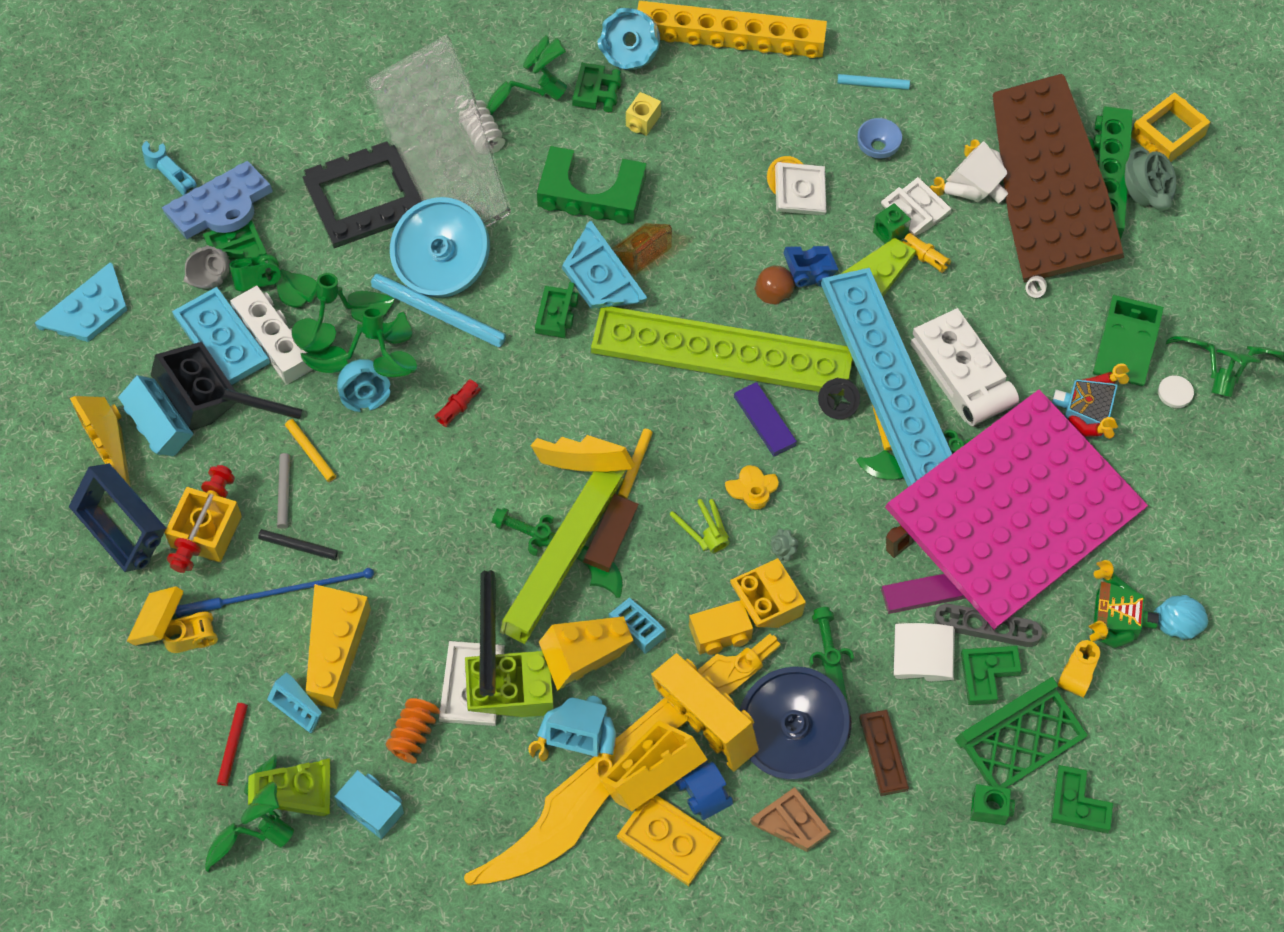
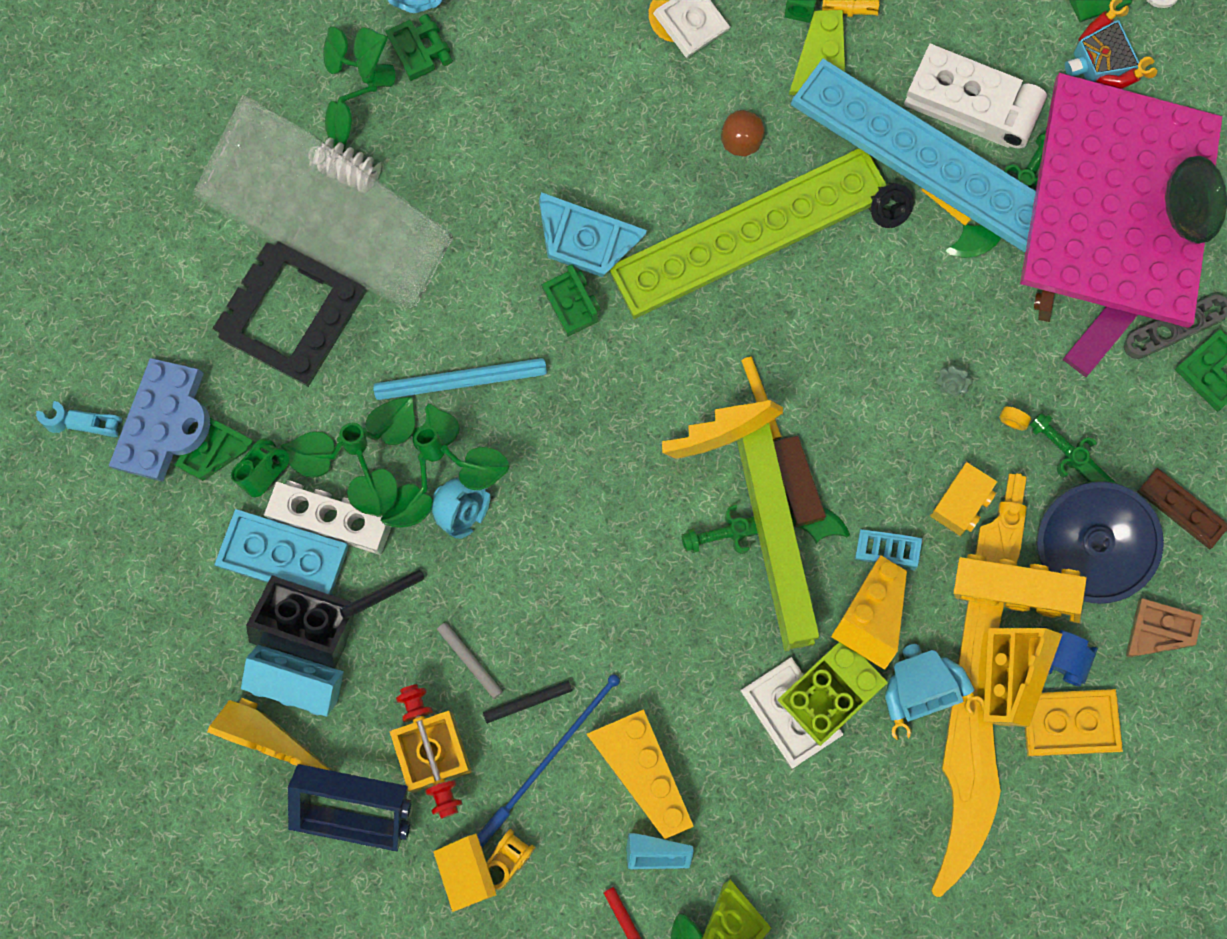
camera: 30 degrees left, 15 degrees up
(87, 308) = (126, 619): medium azure wing -> none
(206, 267) = (210, 497): light grey hair -> none
(310, 450) = (460, 603): yellow piece -> none
(370, 804) = (801, 893): medium azure brick -> none
(410, 727) = (781, 798): orange piece -> none
(439, 247) = (414, 317): medium azure dish -> none
(457, 403) = (556, 457): red pin -> none
(487, 677) = (780, 663): black axle -> none
(616, 204) = (476, 181): green arch -> none
(643, 113) = (486, 34): light yellow brick -> none
(644, 246) = (594, 178): clear orange slope -> none
(714, 536) = (889, 416): lime plant -> none
(752, 487) = (877, 341): yellow plate -> none
(765, 419) = (839, 271): dark purple tile -> none
(769, 595) = (984, 438): yellow slope -> none
(810, 265) = (763, 91): blue cylinder -> none
(810, 600) = (1015, 418): none -> yellow tile
(924, 651) = (1146, 391): white slope -> none
(1065, 535) = (1196, 199): none -> clear green hat

